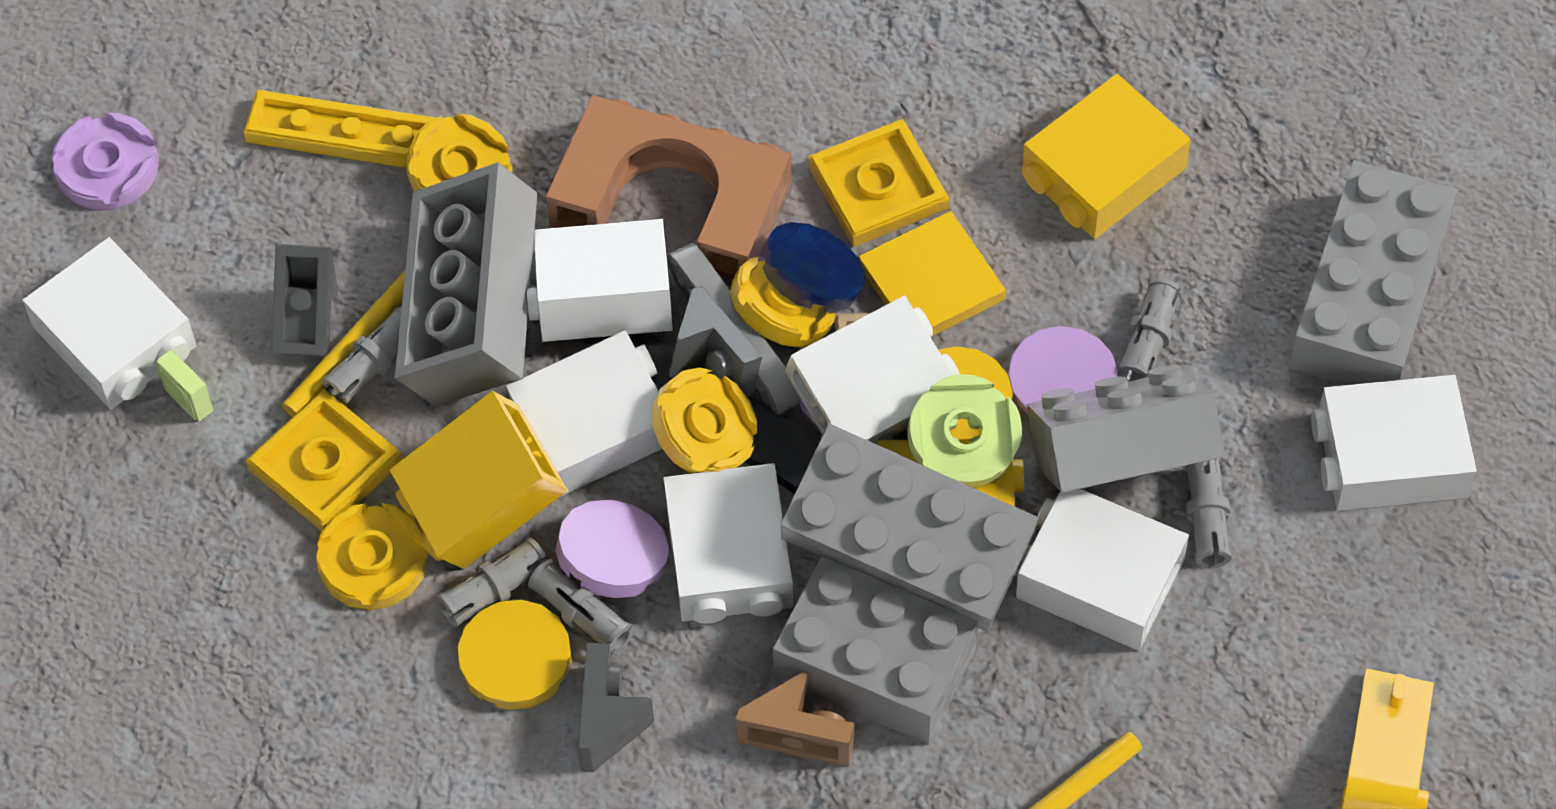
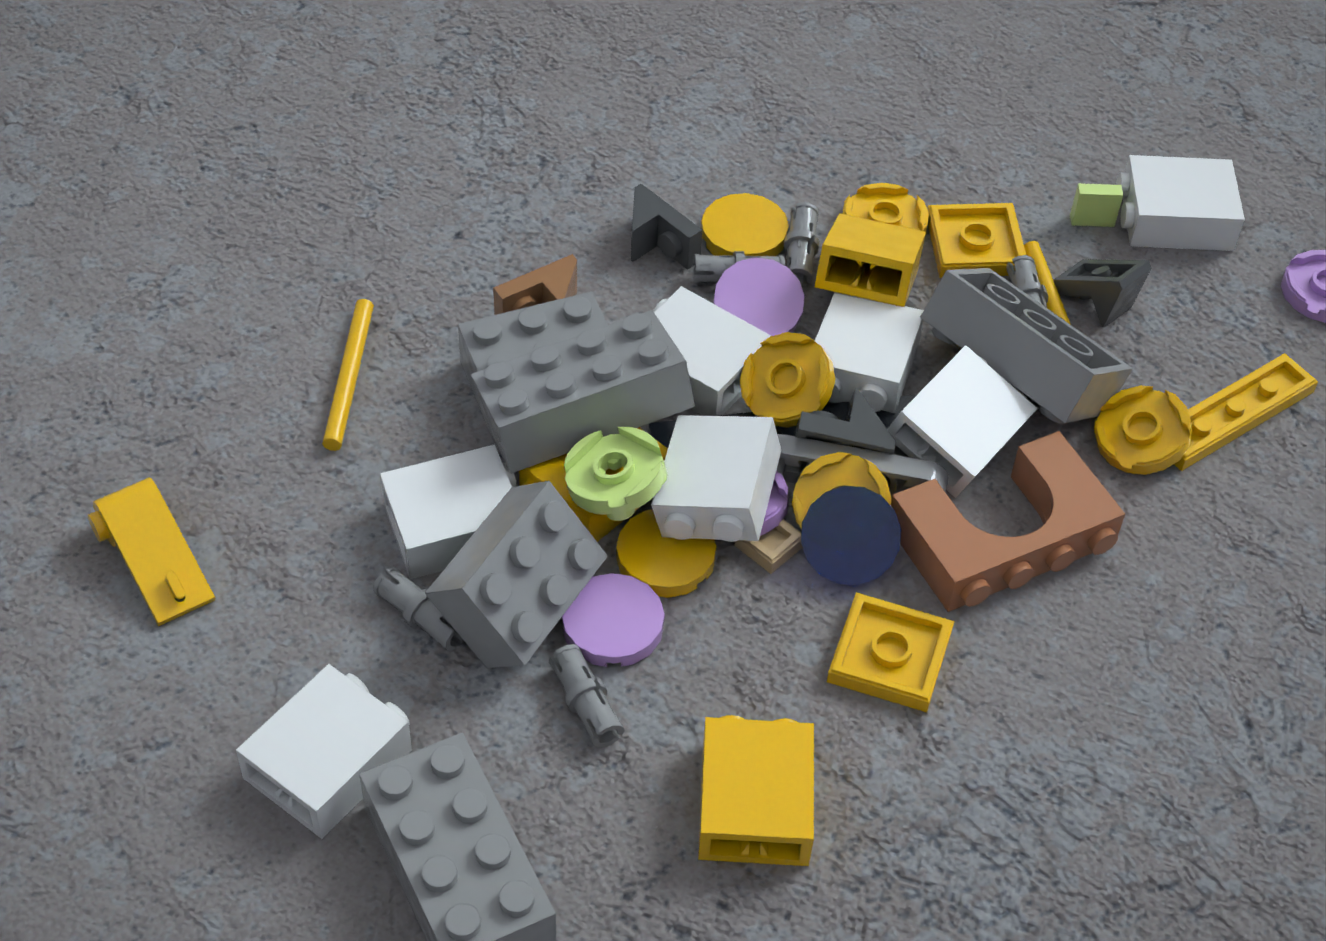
camera: 130 degrees right, 10 degrees down
(935, 271) = (775, 615): yellow tile -> none

